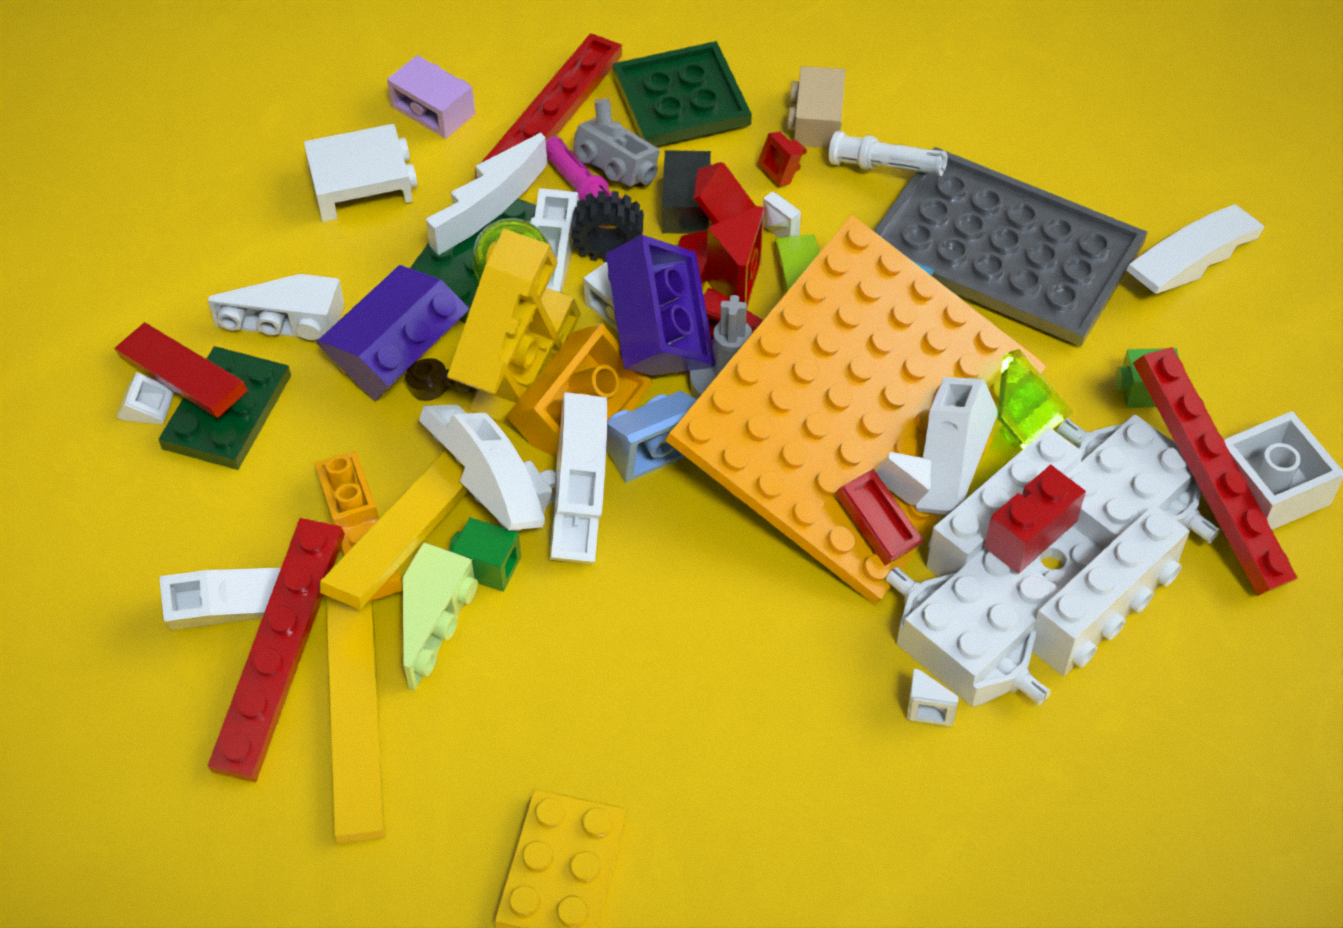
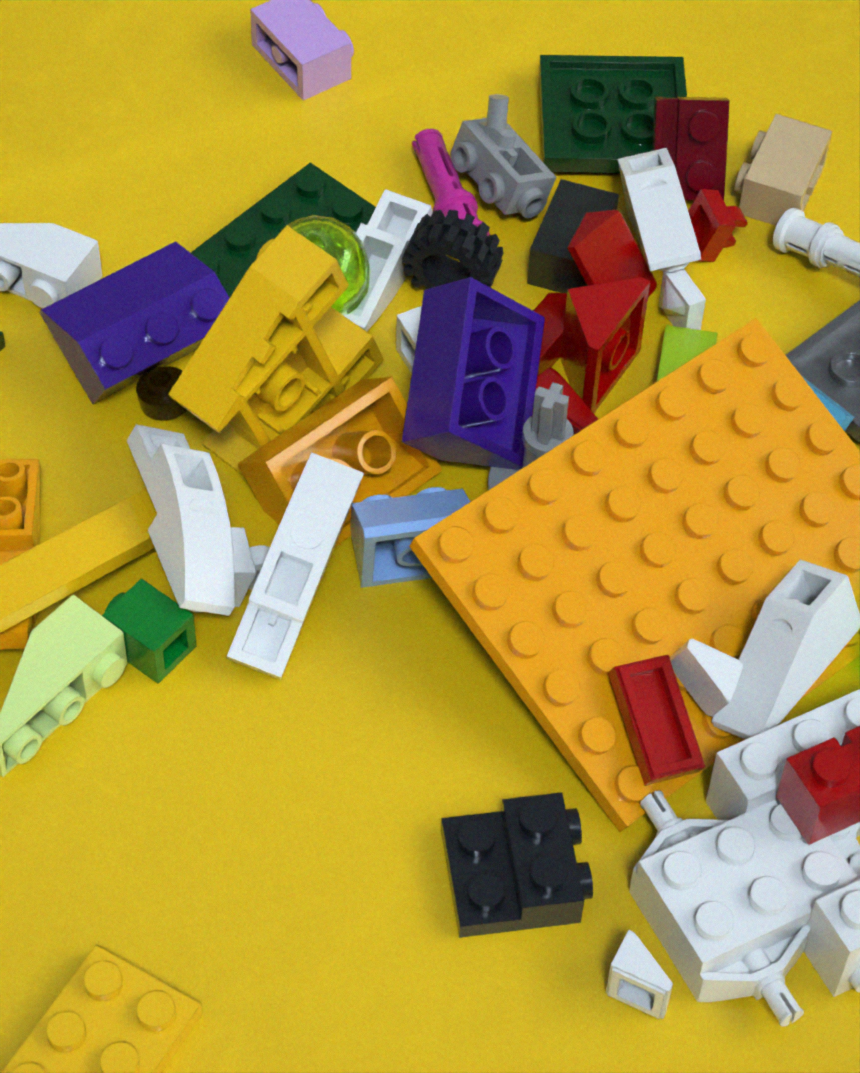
camera: 15 degrees right, 0 degrees up
(359, 166) = (178, 109): white panel -> none
(485, 198) = (308, 186): white slope -> none
(563, 93) = (438, 98): red plate -> none
(745, 155) = (658, 210): none -> white slope
(747, 105) = (696, 140): none -> dark red plate
(814, 648) = (516, 866): none -> black plate

